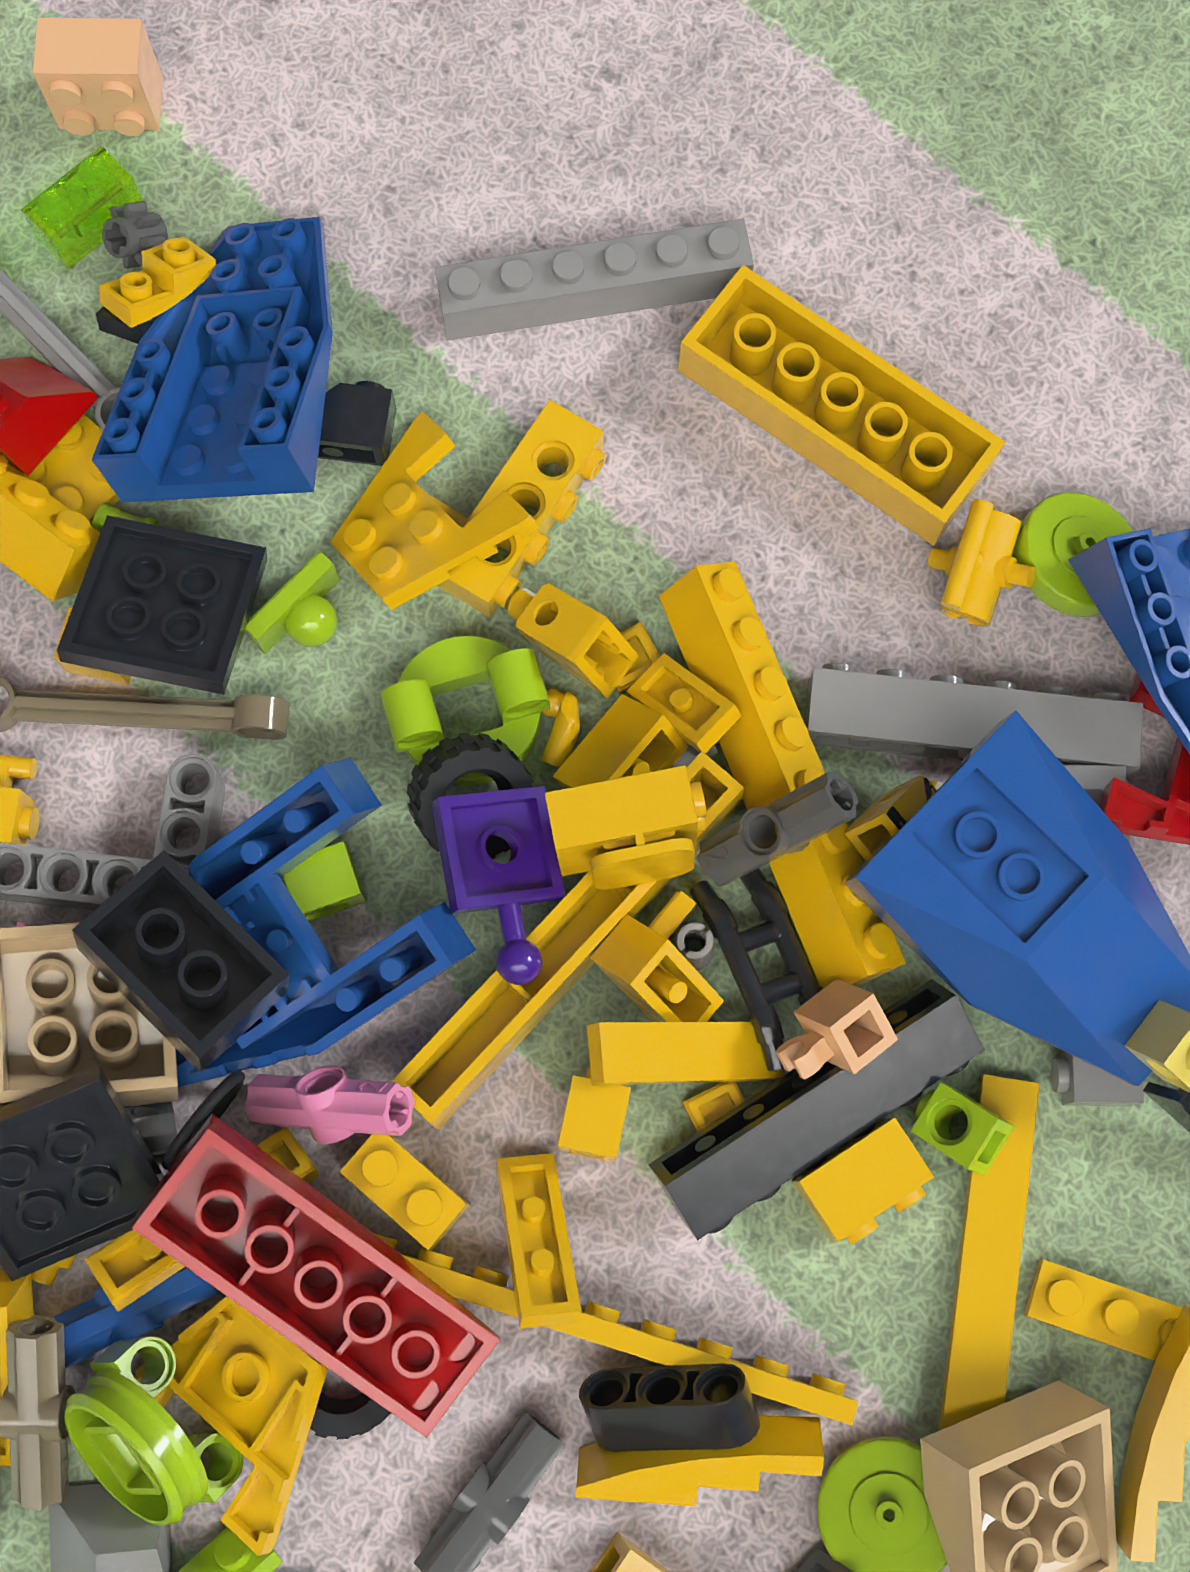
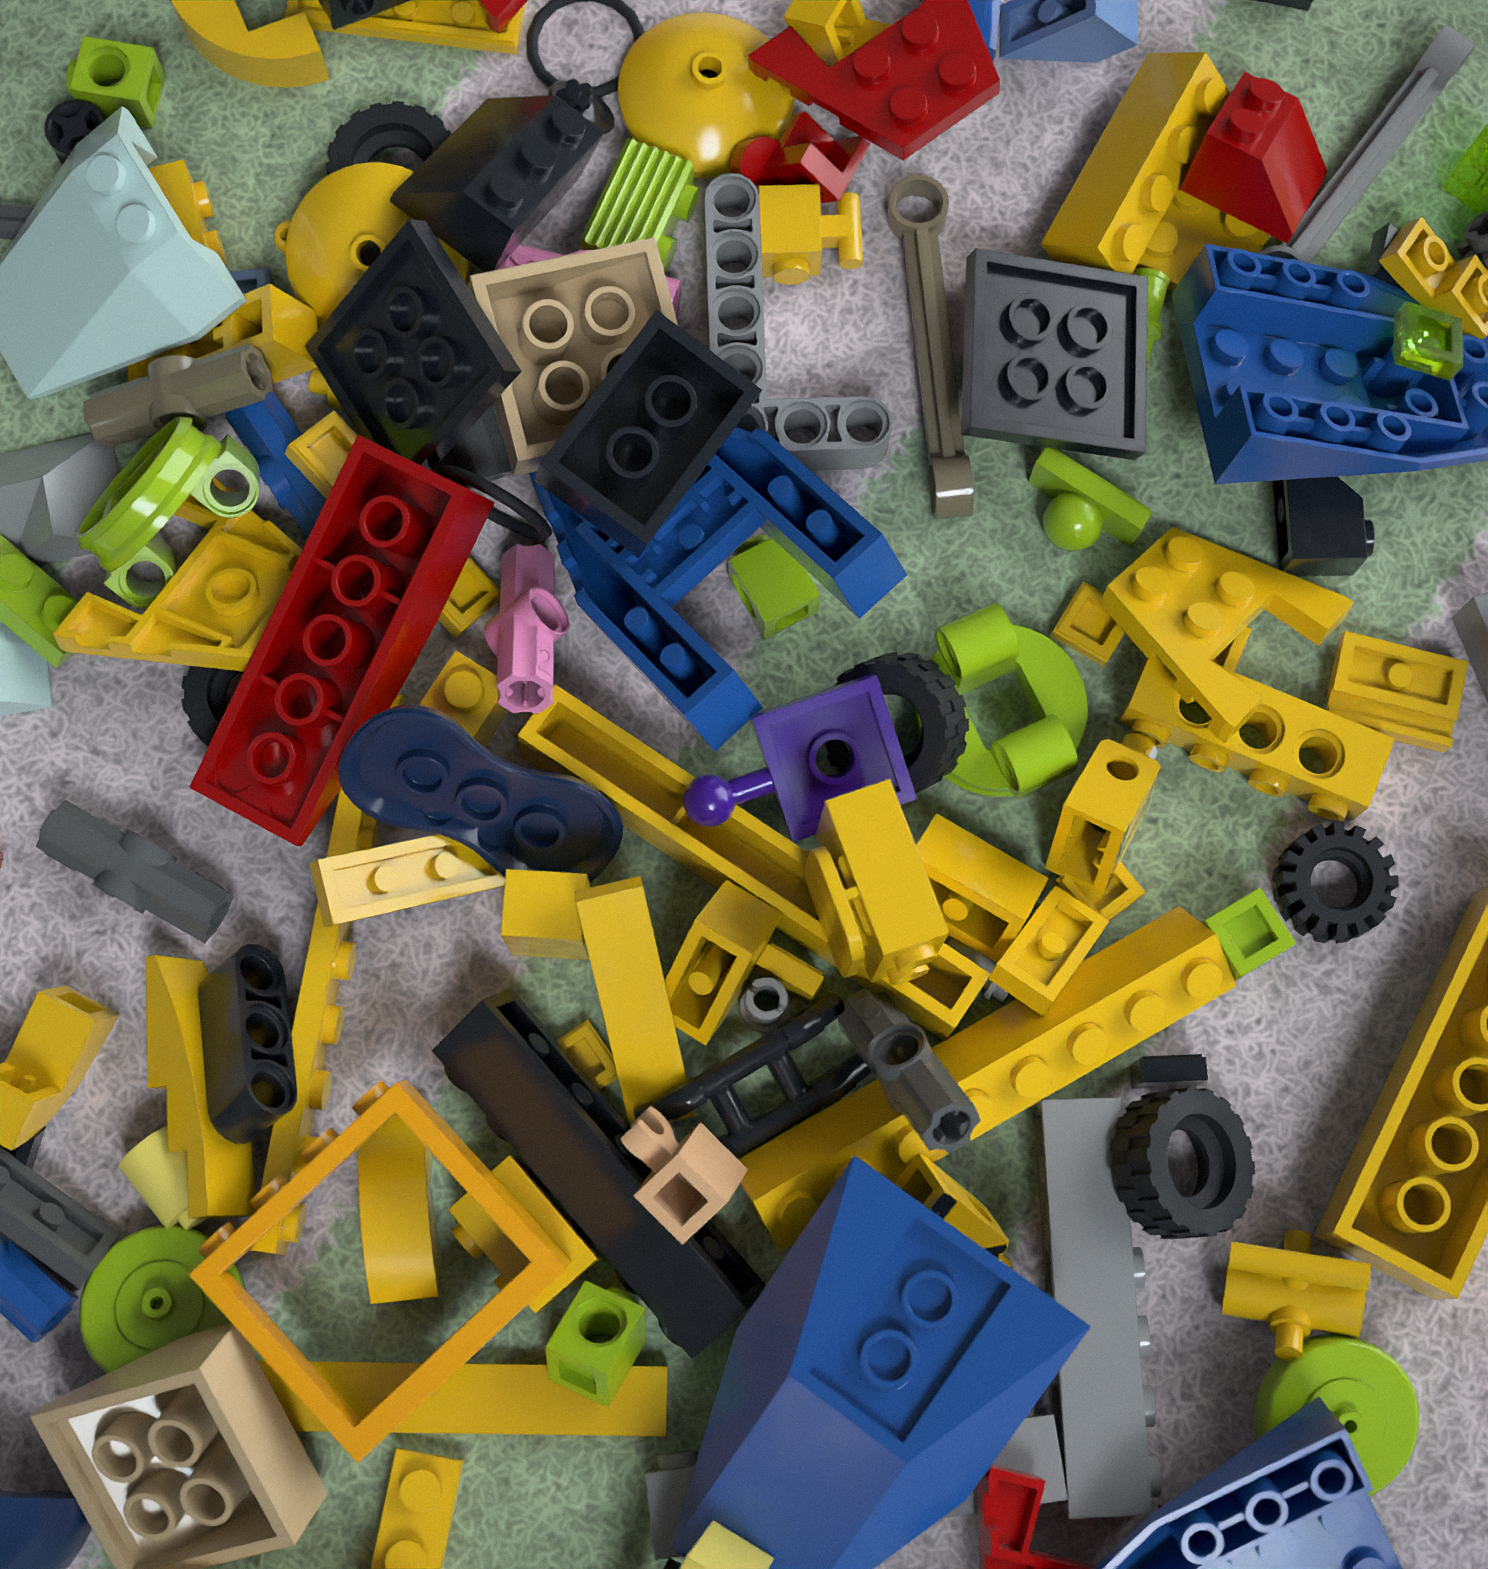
camera: 80 degrees right, 0 degrees up
(214, 302) = (1428, 341): none -> clear neon green plate
(404, 626) = (1088, 626): none -> yellow tile
(461, 1196) = (434, 777): none -> dark blue plate
(503, 394) = (1397, 690): none -> yellow plate
(565, 727) = (1000, 824): yellow arm -> none
(663, 444) = (1365, 862): none -> black tyre
(693, 542) = (1250, 933): none -> lime brick
(778, 1501) = (160, 1179): none -> light yellow brick
(793, 629) = (1168, 1071): none -> black tile
(825, 1288) = (398, 1215): none -> yellow brick
(870, 657) = (1143, 1169): none -> black tyre
(966, 1253) = (281, 1197): none -> light orange window

